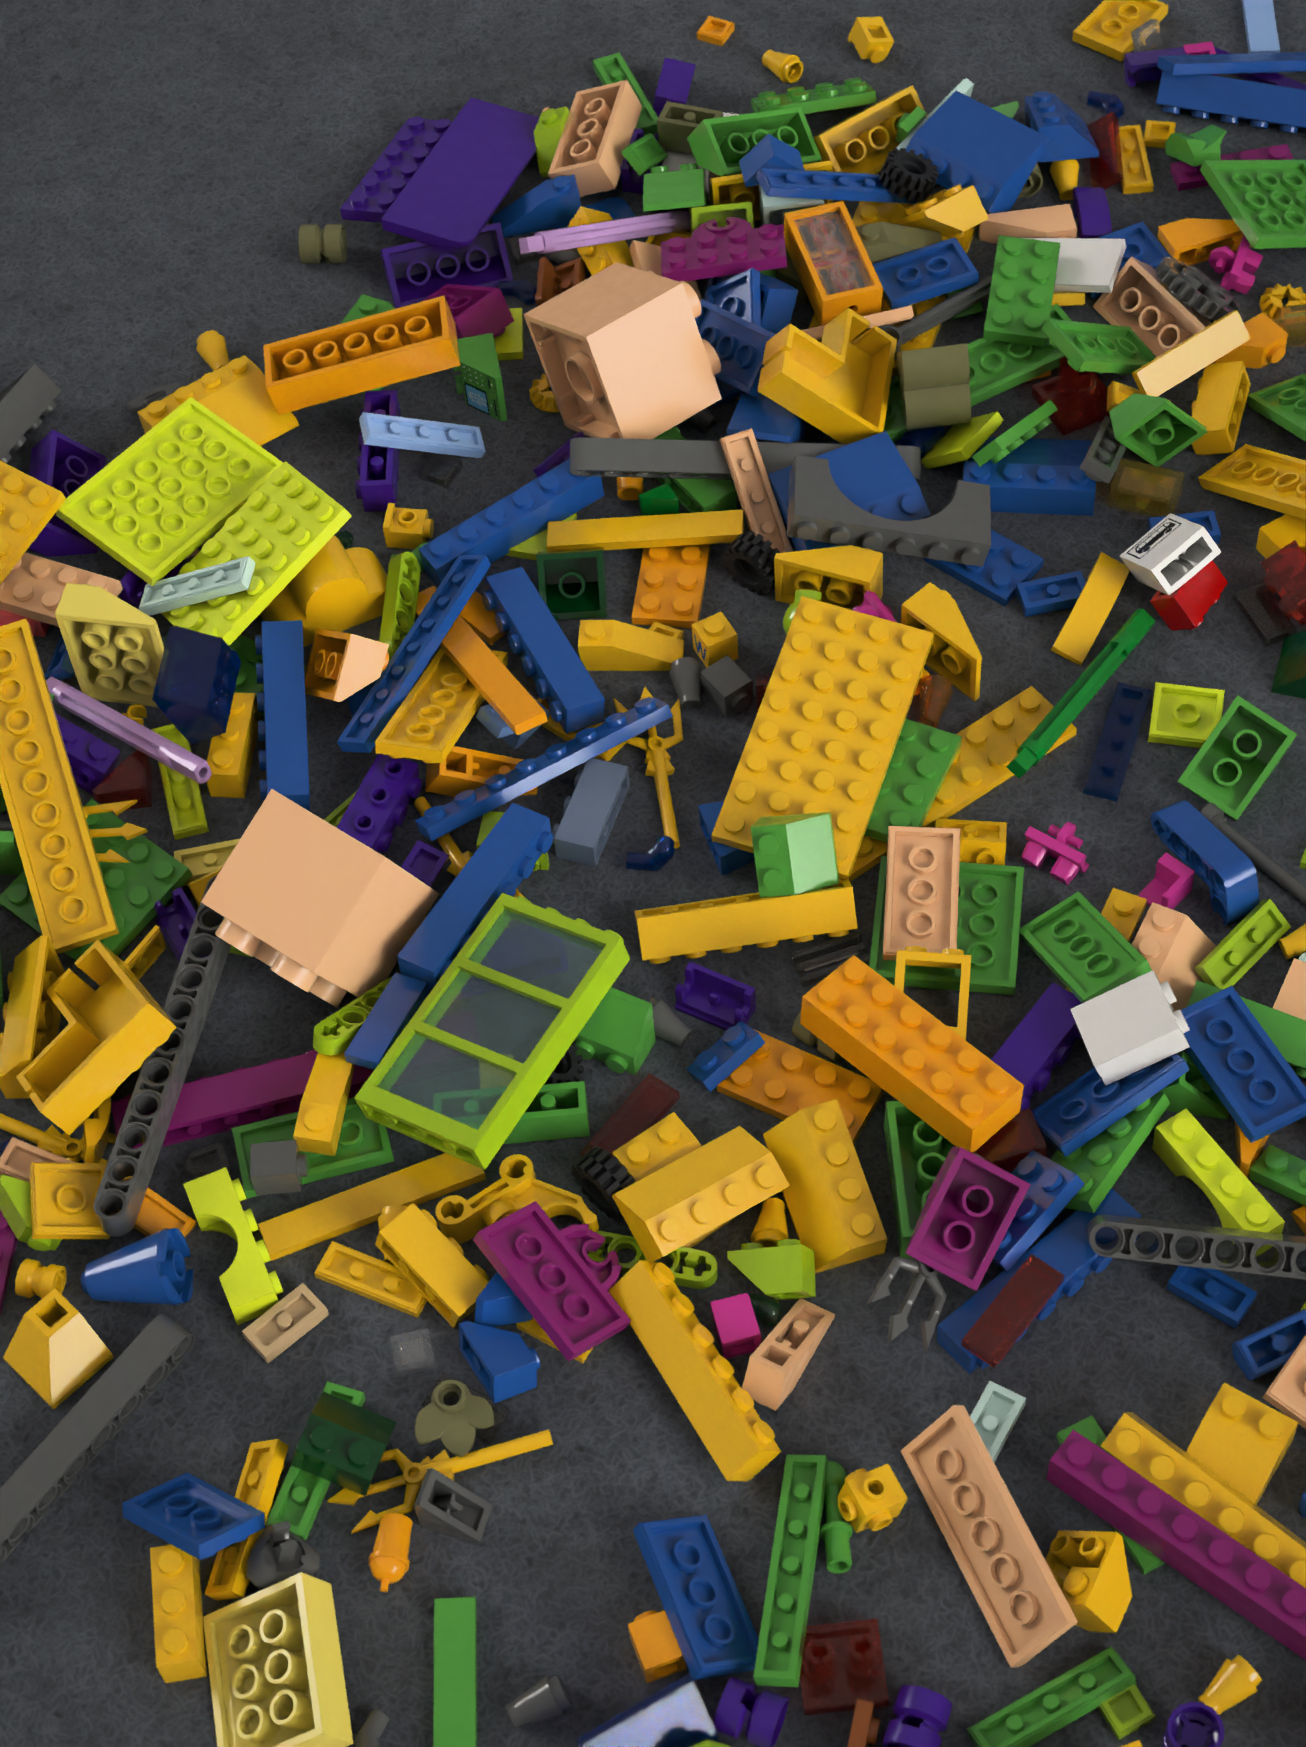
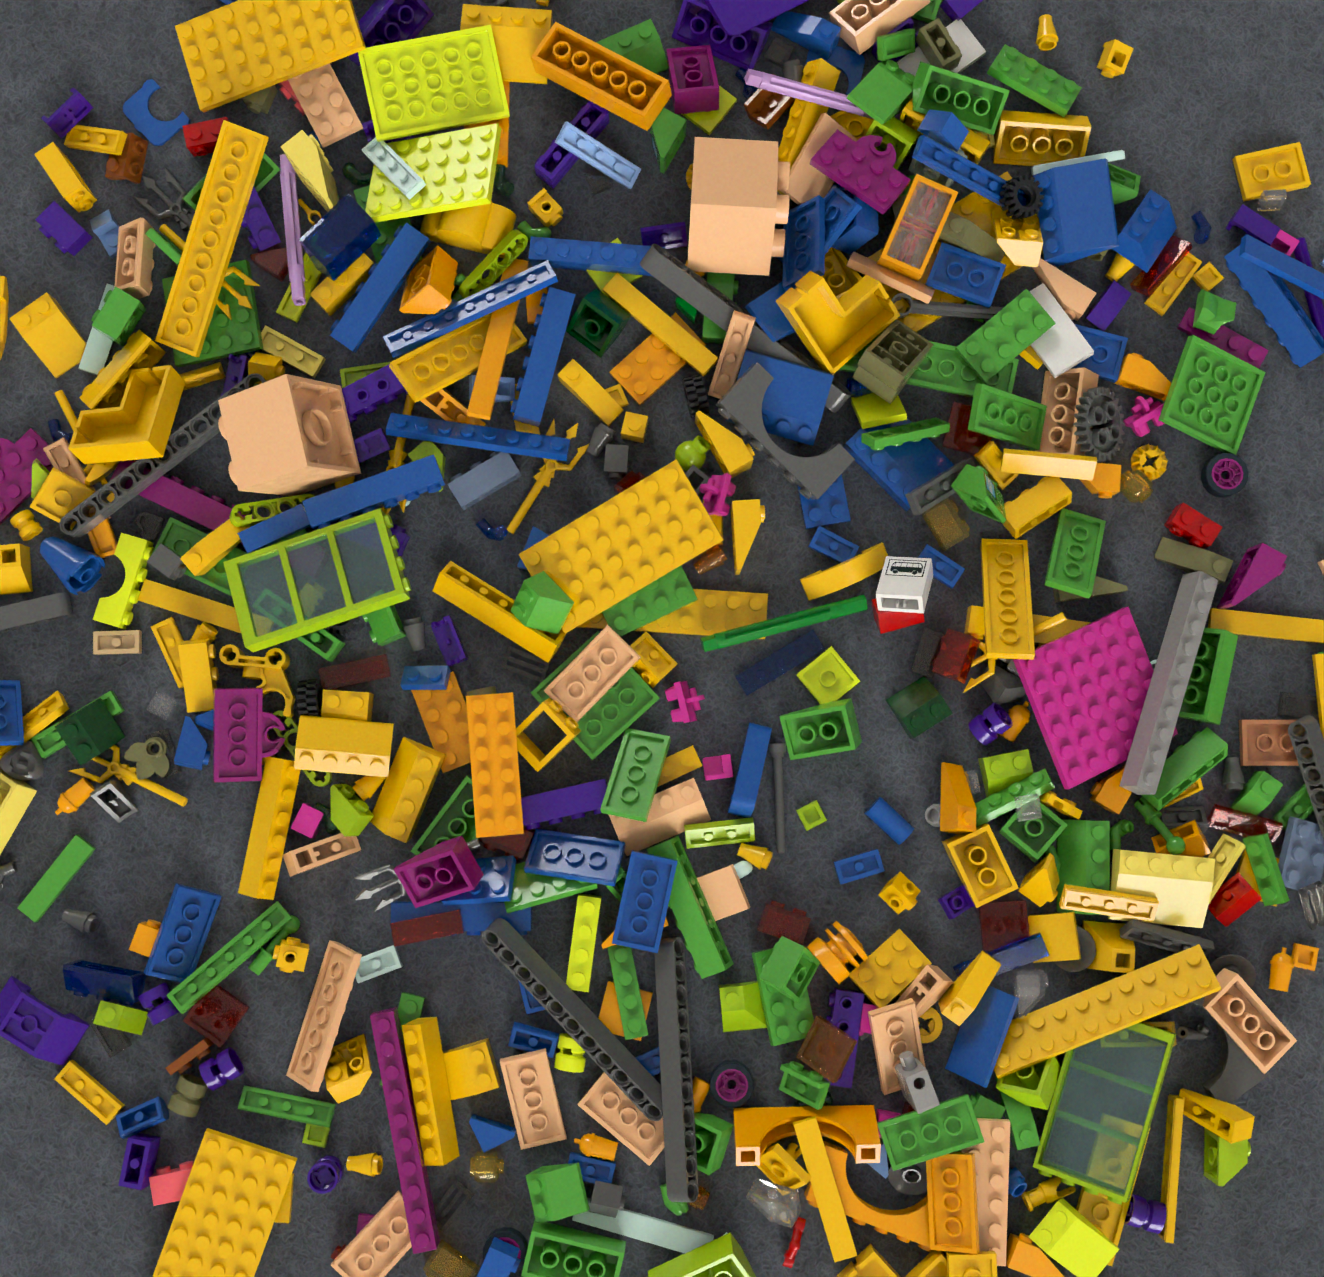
camera: 35 degrees right, 30 degrees up
(909, 122) = (1064, 153): bright green plate -> none
(1131, 1027) = (606, 843): white brick -> none

